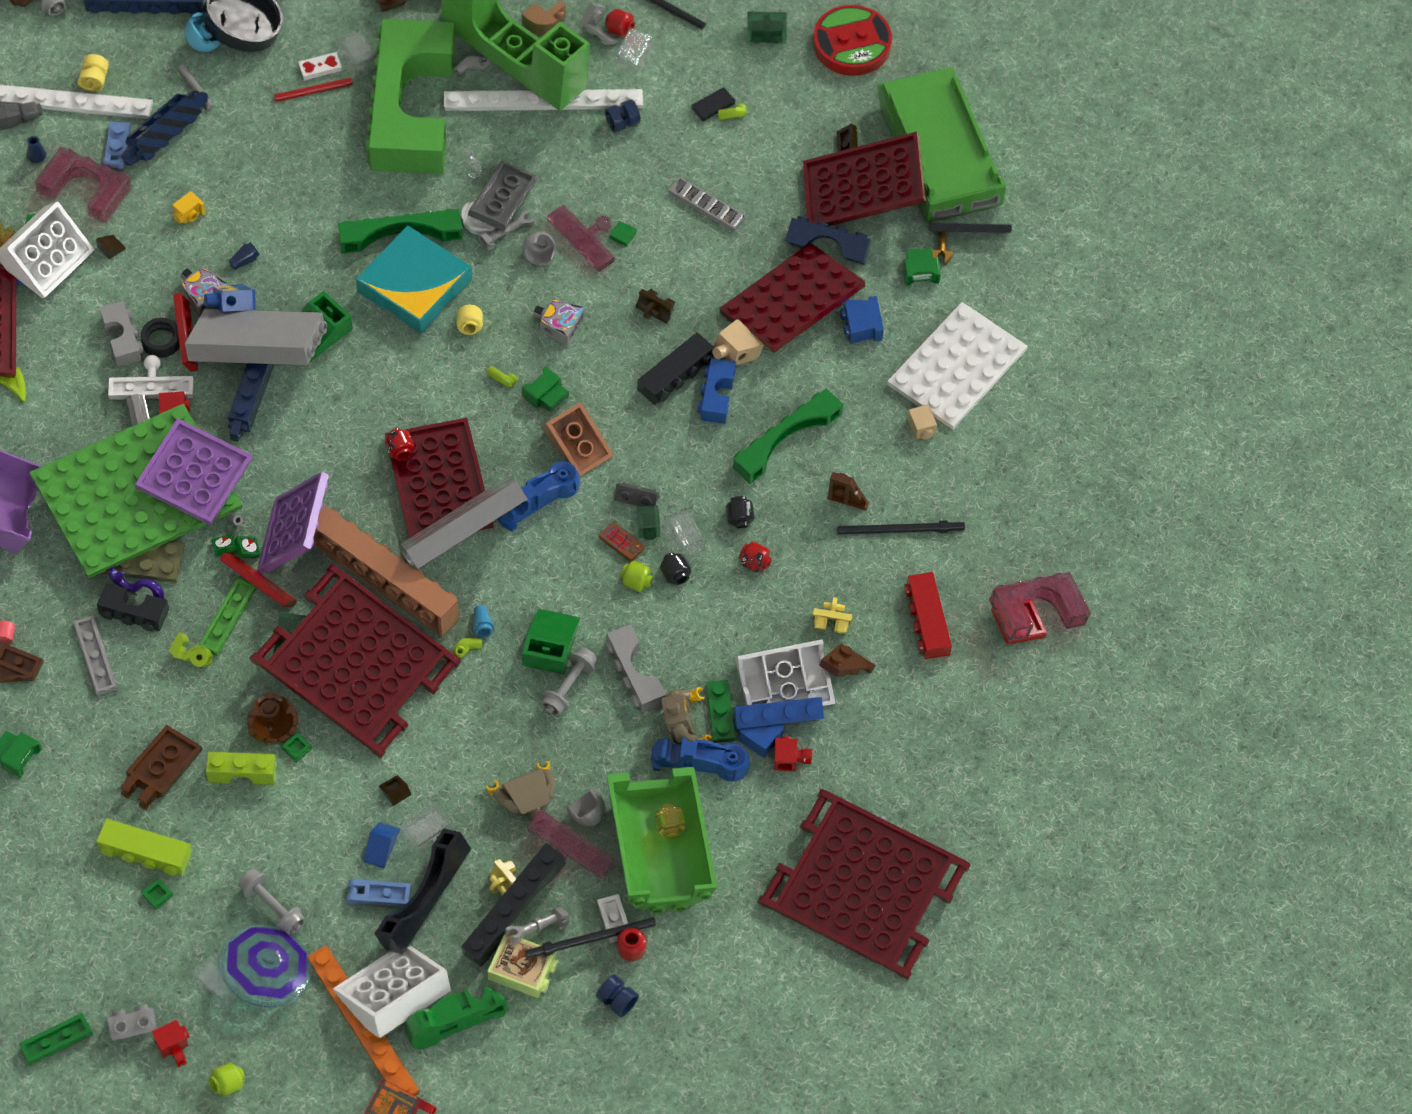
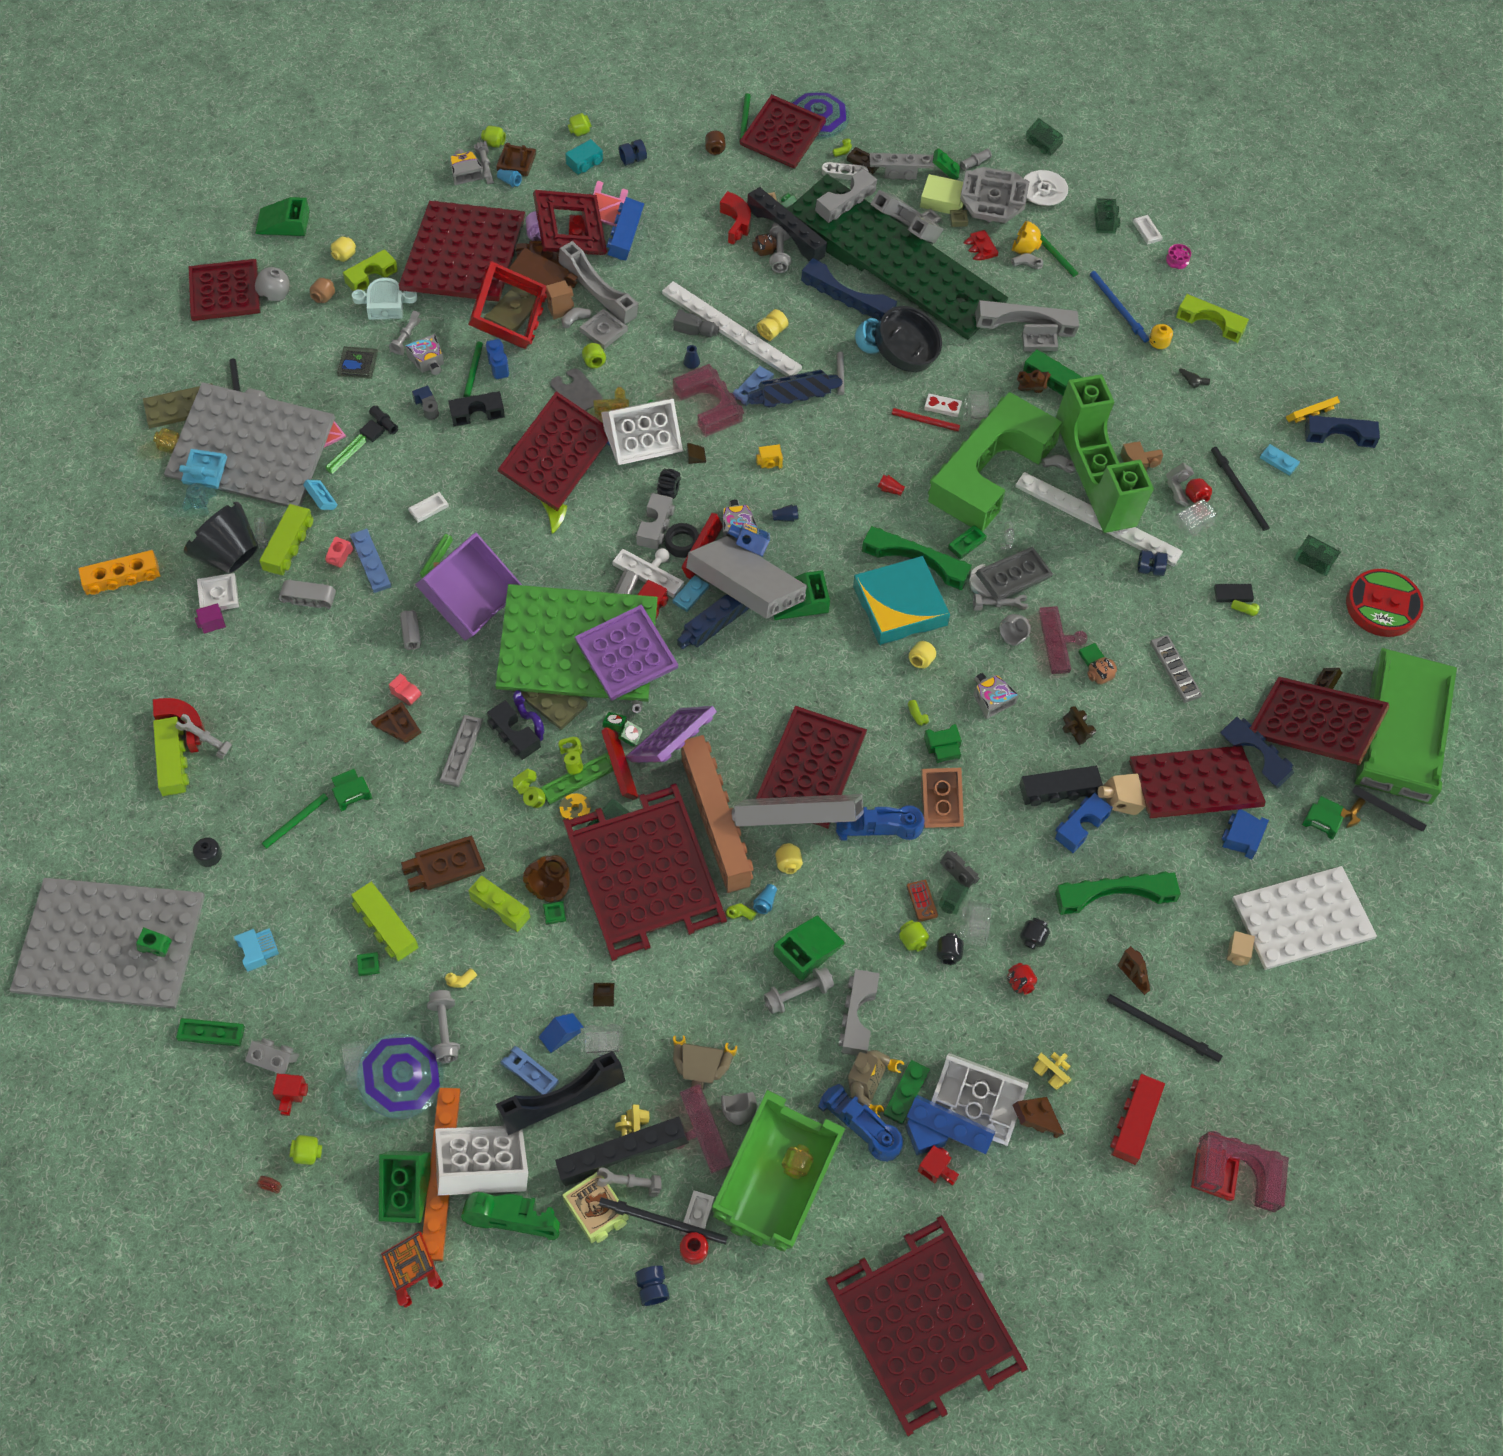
camera: 35 degrees right, 0 degrees up
(39, 942) = (256, 947): none -> medium azure piece
(108, 288) = (668, 483): none -> black gear
(206, 384) = (690, 593): none -> medium azure plate
(211, 597) = (572, 758): none -> lime leg
(243, 636) = (571, 801): none -> yellow piece
(249, 860) = (460, 981): none -> light yellow arm
(325, 173) = (890, 485): none -> red cone
(340, 1052) = (403, 1185): none -> green slope
(399, 444) = (797, 720): red head -> none
(437, 189) = (967, 542): none -> green plate
(478, 573) = (788, 858): none -> light yellow head
(643, 242) = (1102, 670): none -> nougat head

